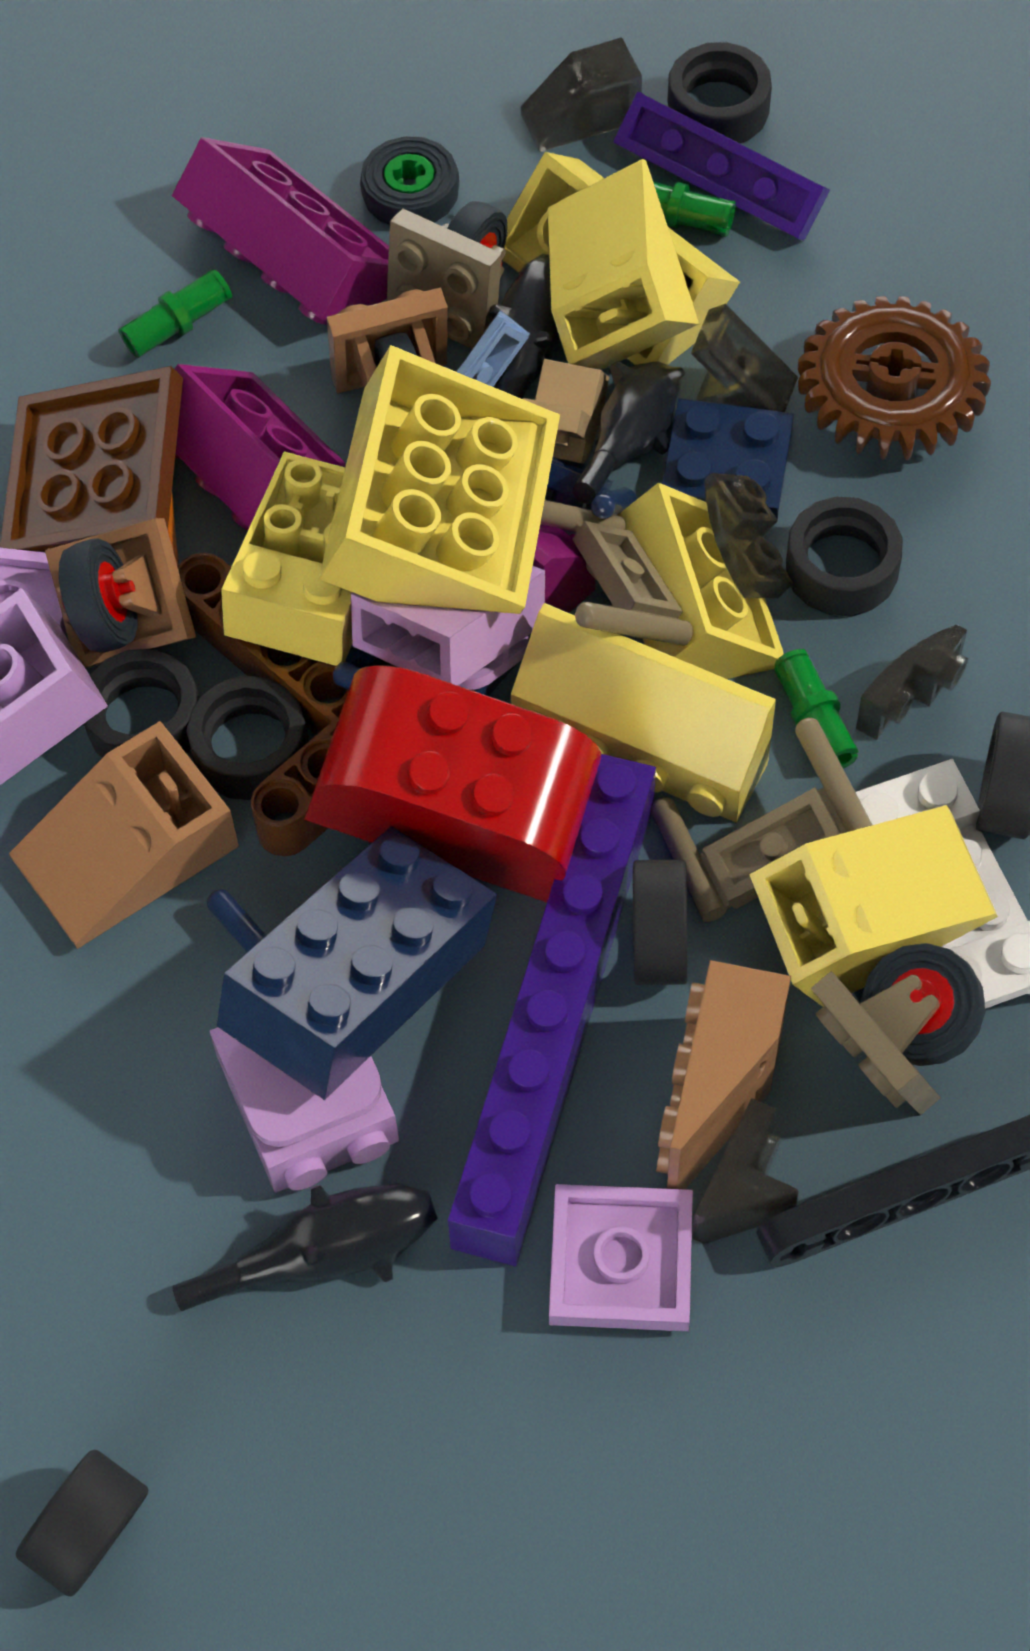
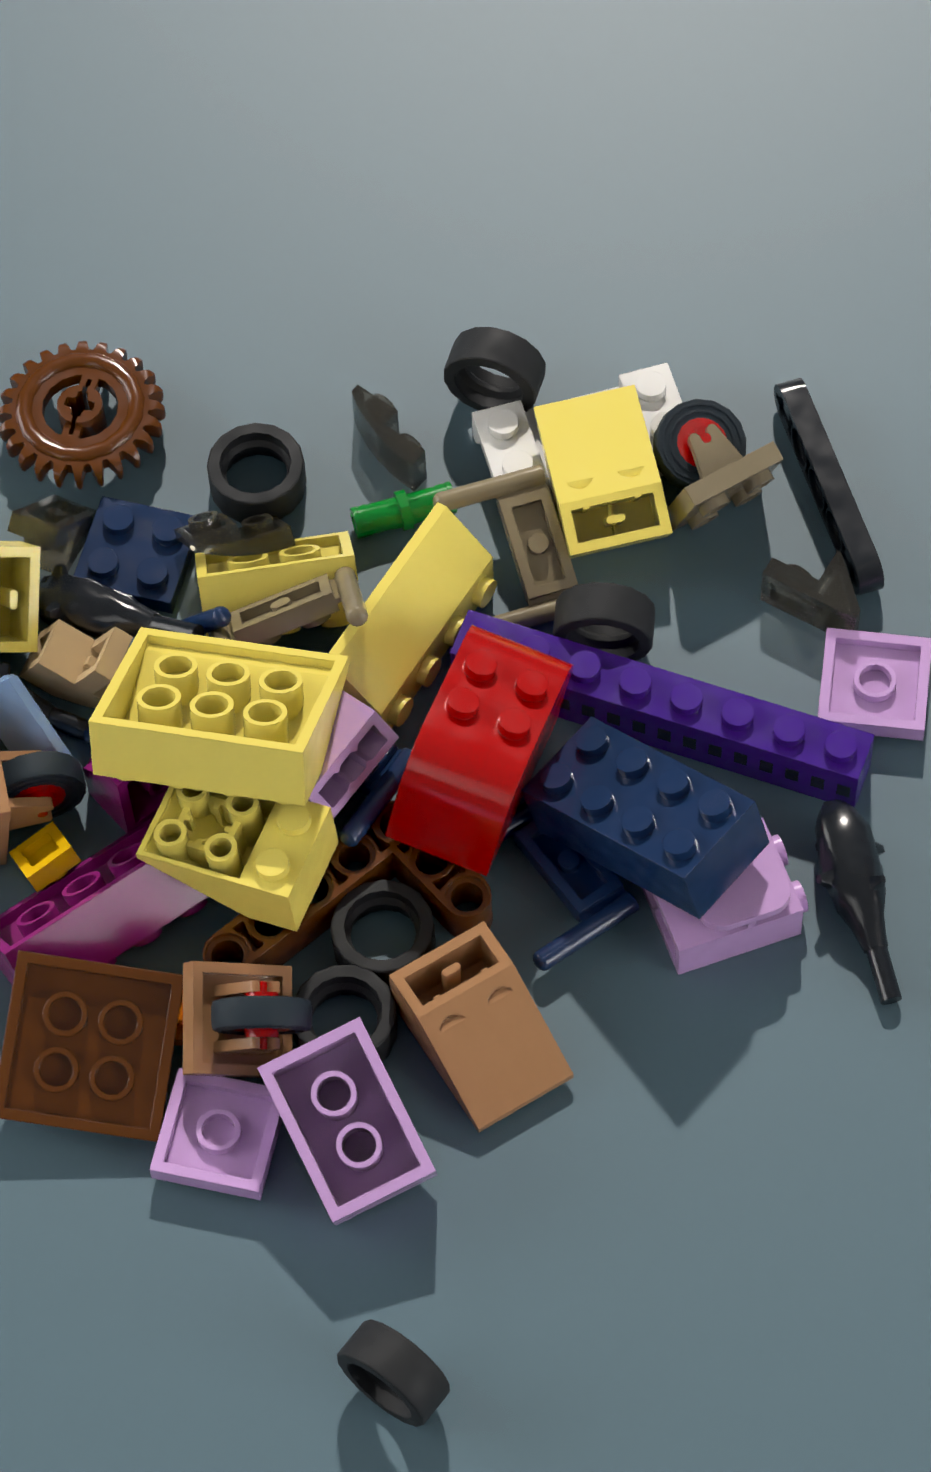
camera: 85 degrees left, 0 degrees up
(326, 412) = (45, 857): none -> yellow plate
(721, 1064) = (741, 591): medium nougat slope -> none

